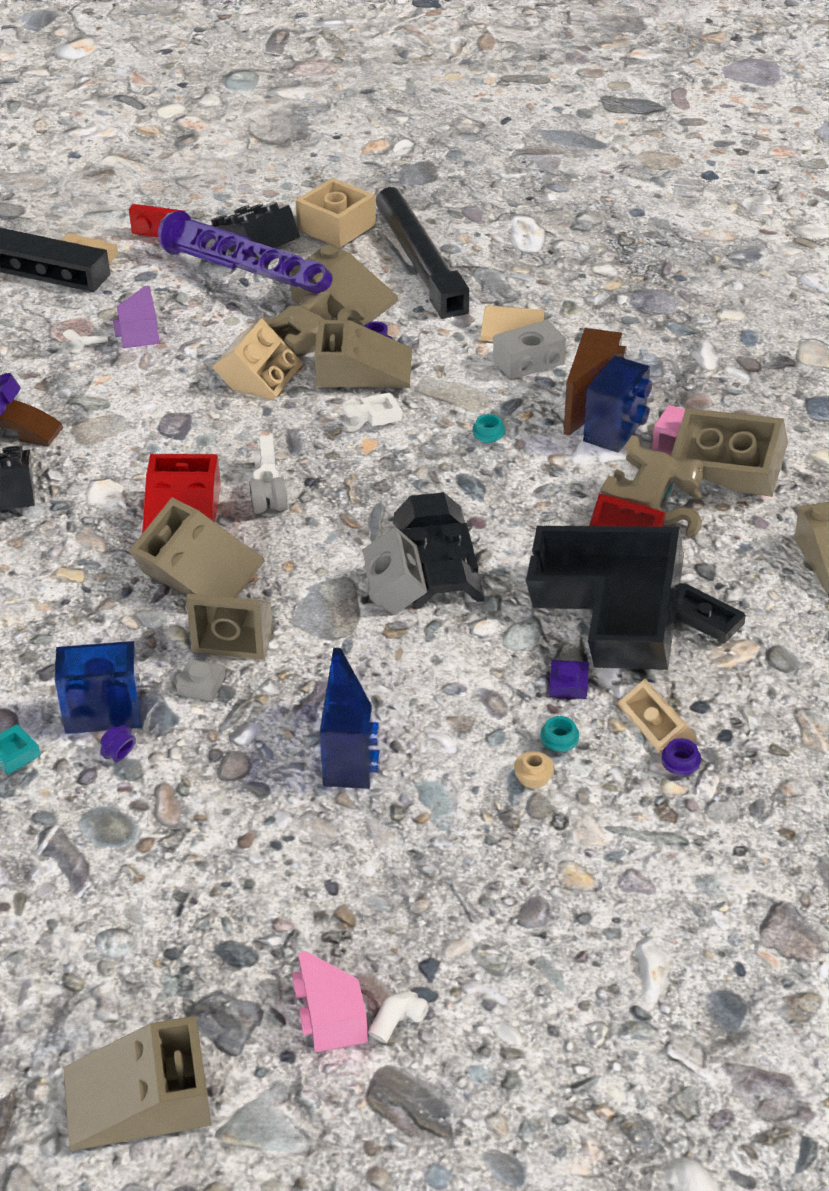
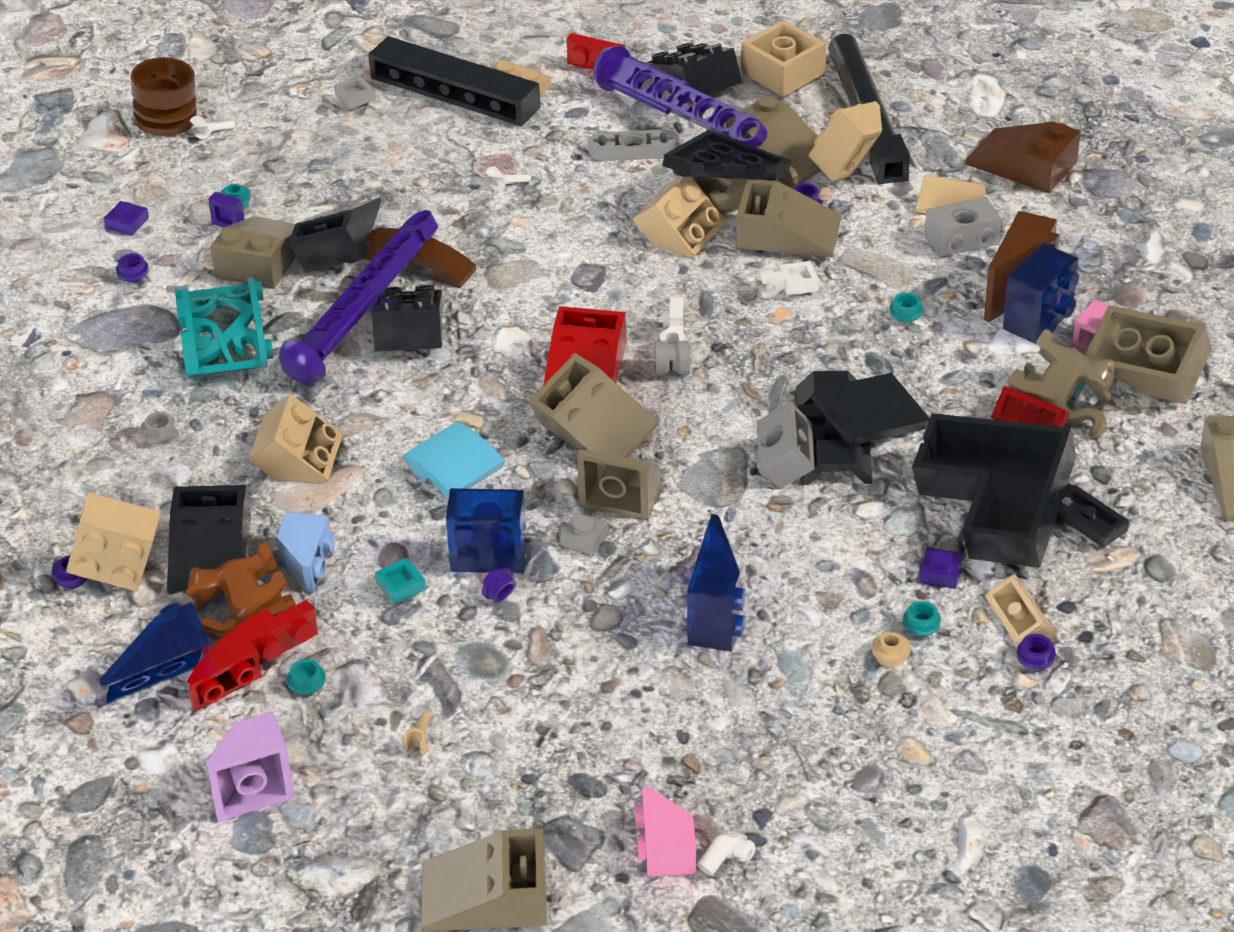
camera: 10 degrees right, 0 degrees up
(46, 917) = (418, 734): none -> tan hand
(57, 616) = (454, 459): none -> medium azure slope
(137, 320) = (562, 162): medium lavender slope -> none
(203, 300) = (613, 145): none -> light grey beam
(294, 302) = (724, 157): none -> black plate
(408, 278) = (847, 139): none -> tan slope
(472, 527) = (870, 409): none -> black tile
(577, 280) = (1029, 153): none -> reddish brown slope

